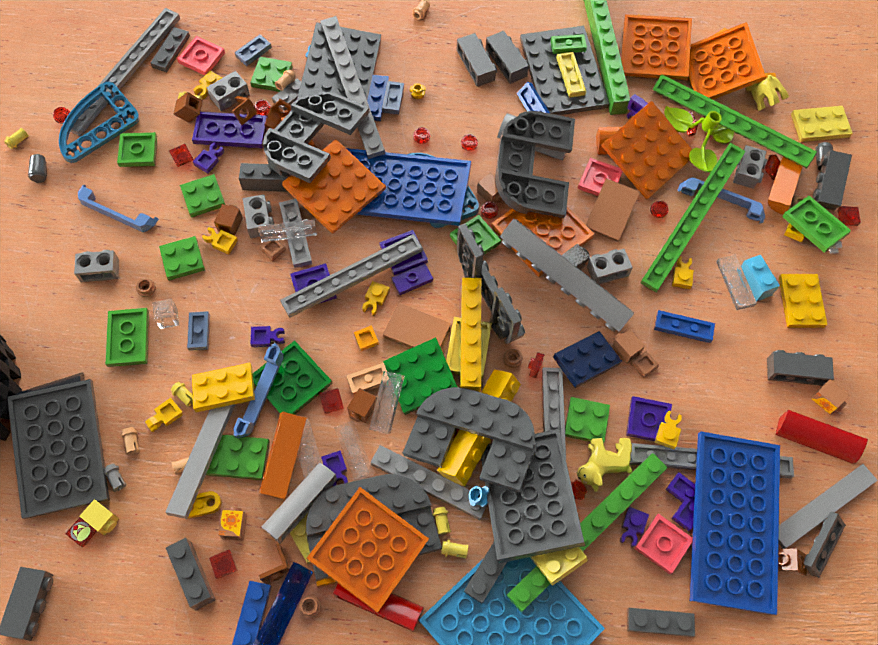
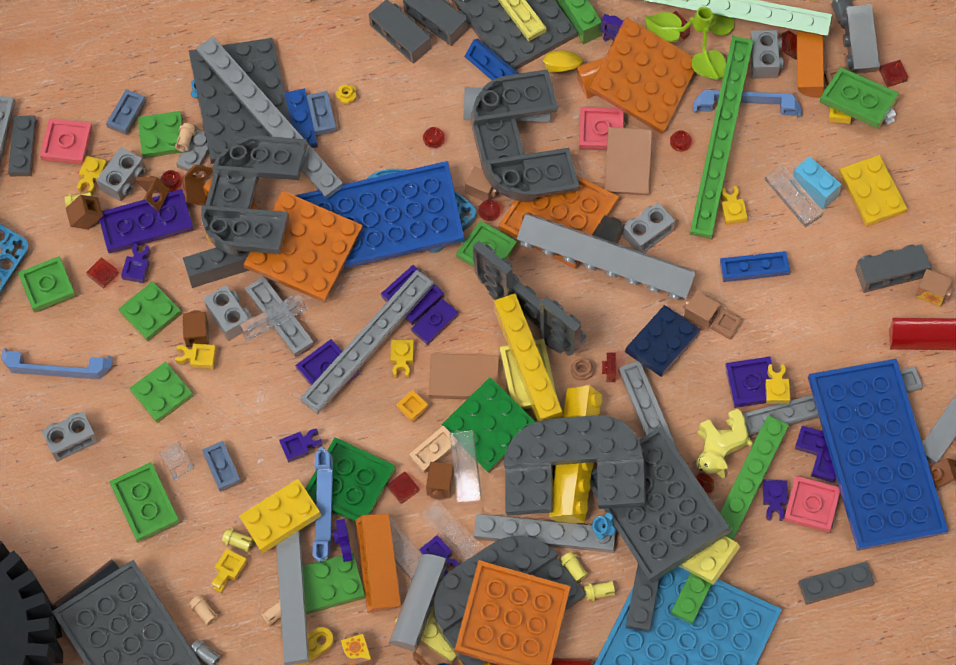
camera: 15 degrees left, 0 degrees up
(143, 283) = (132, 436): nougat plate -> none
(264, 424) = (341, 537): none -> dark purple plate
(273, 249) = (261, 345): nougat tile -> none
(421, 135) = (374, 148): clear red plate -> none
(586, 419) = (686, 406): bright green plate -> none
(588, 119) = (561, 61): none -> yellow hat

